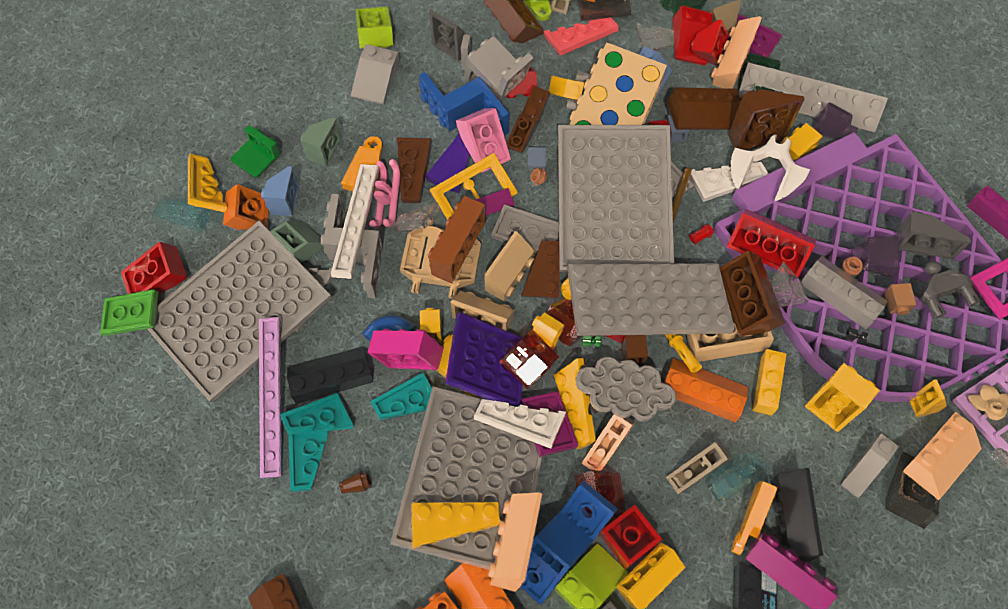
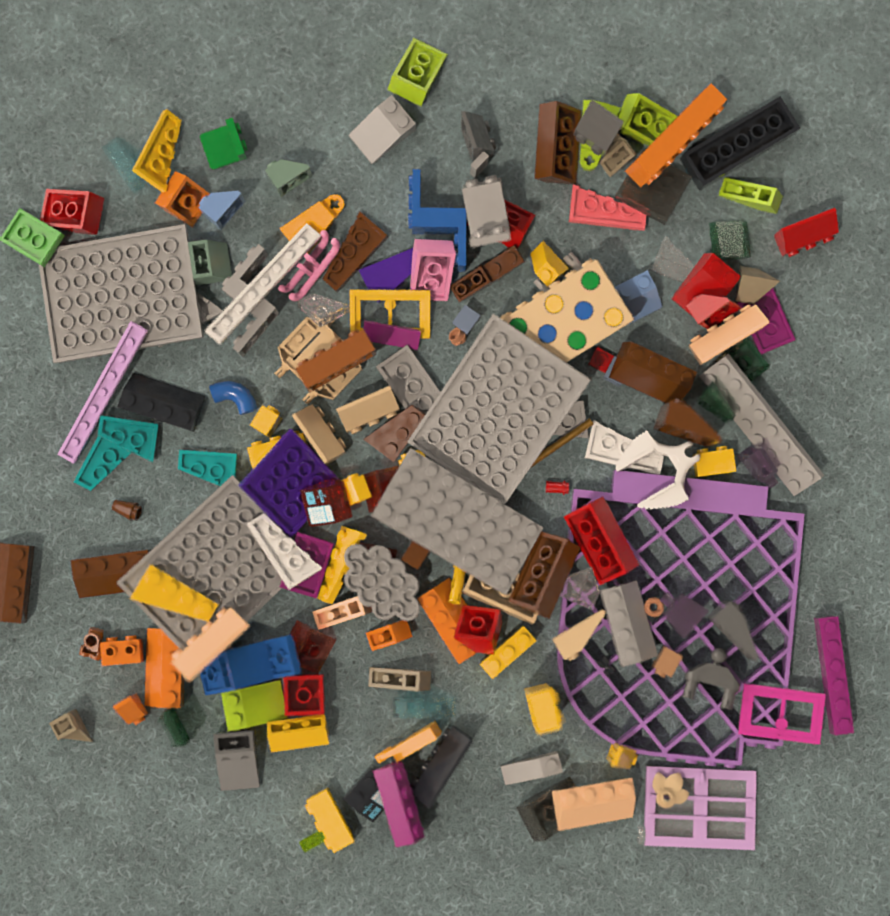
camera: 30 degrees right, 20 degrees up
(371, 554) = (100, 574): none -> reddish brown slope
(405, 349) = (231, 429): dark pink brick -> none
(661, 436) = (389, 635): none -> orange slope
(734, 375) = (479, 628): none -> red slope
(816, 326) = (575, 638): none -> tan slope

